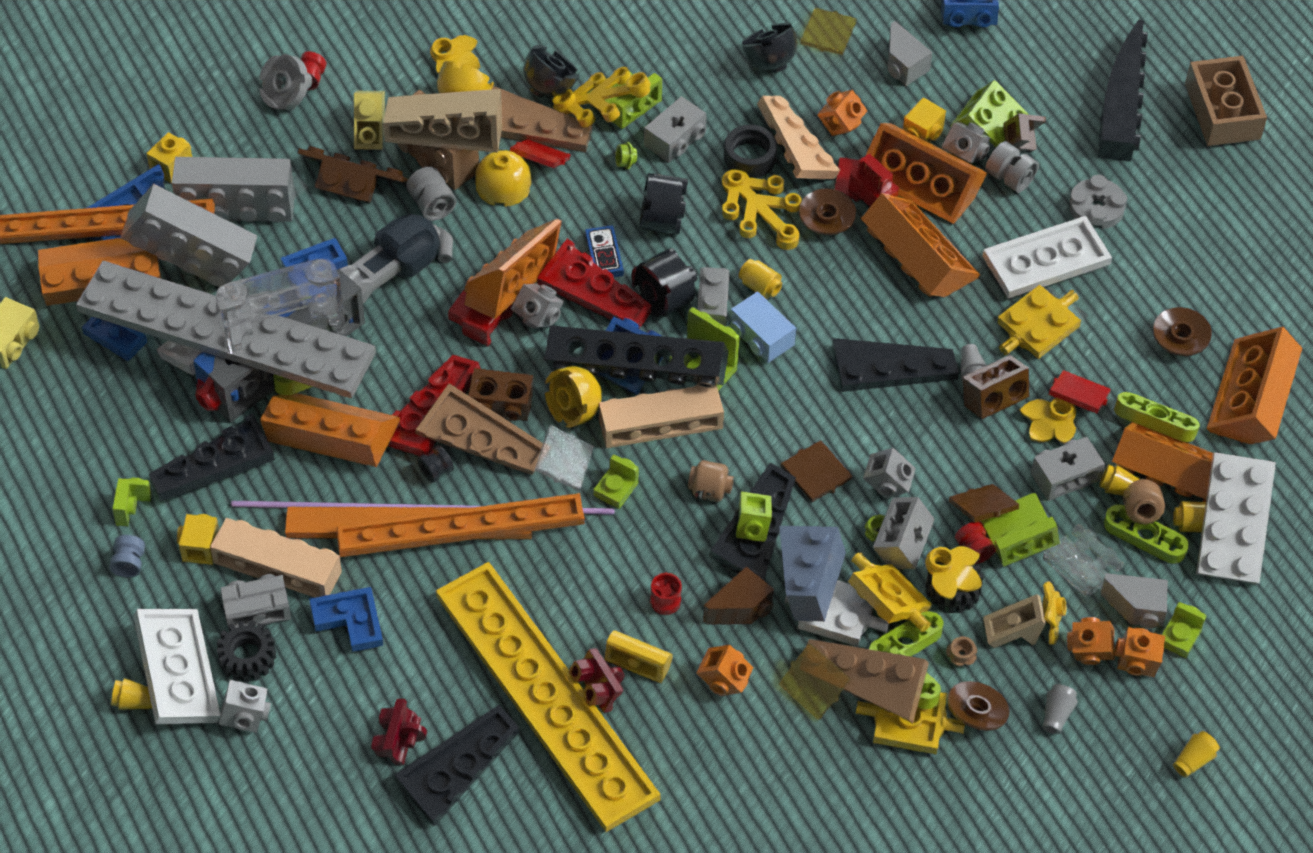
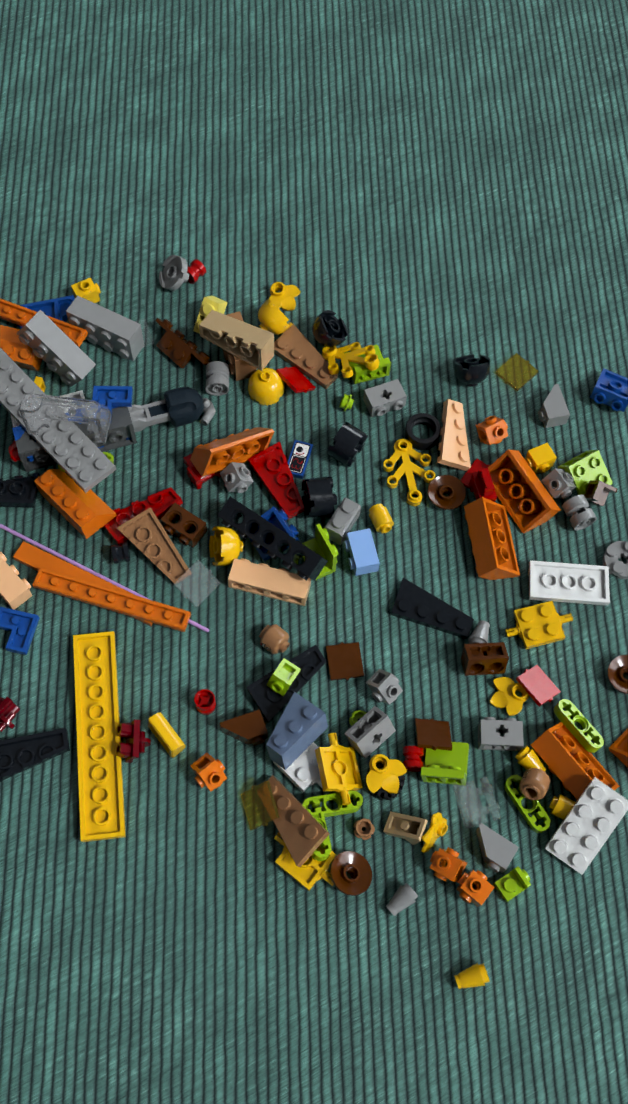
camera: 25 degrees right, 10 degrees up
(617, 482) = (220, 613): lime bracket -> none

